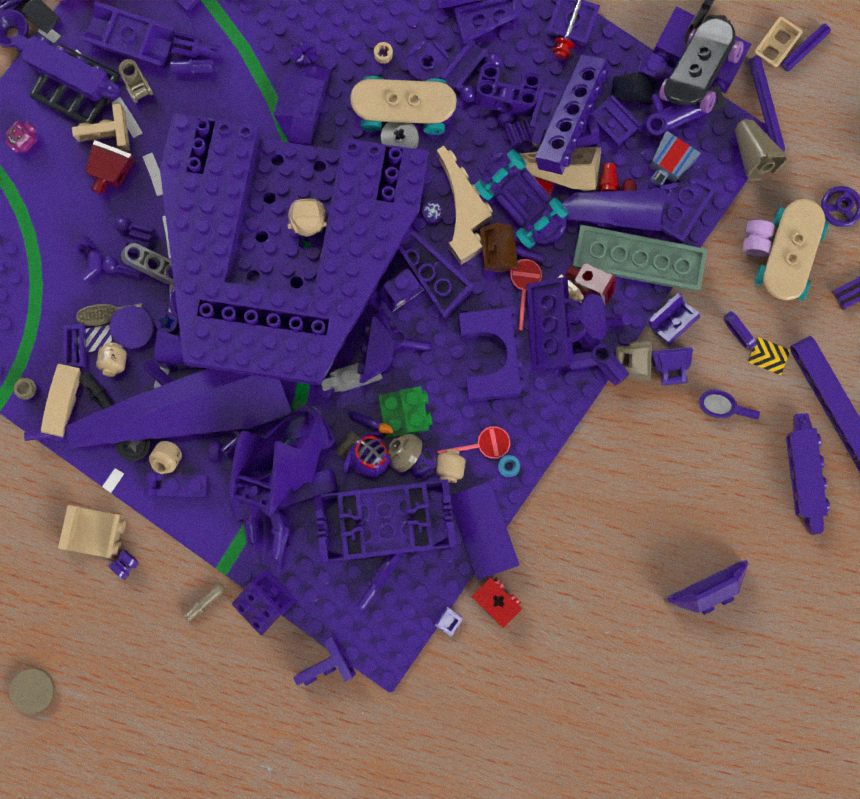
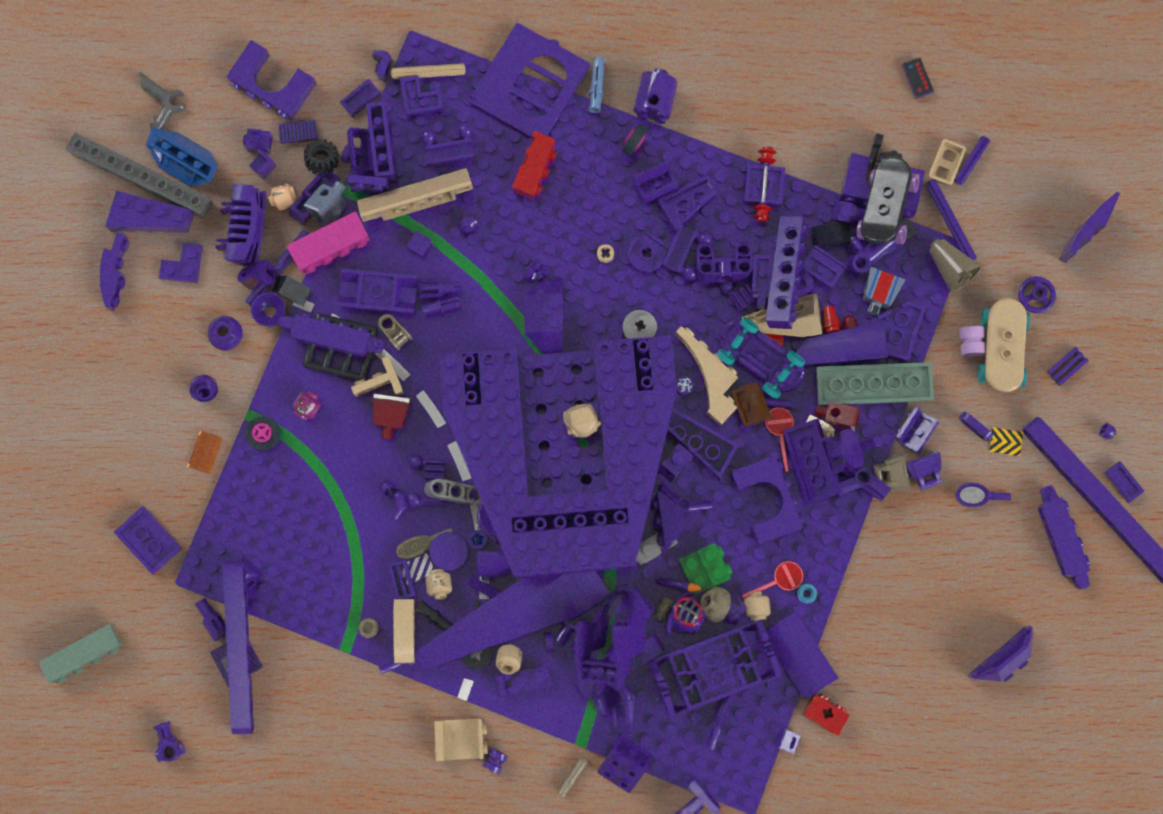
camera: 15 degrees left, 0 degrees up
(403, 102) = (636, 295): tan piece -> none

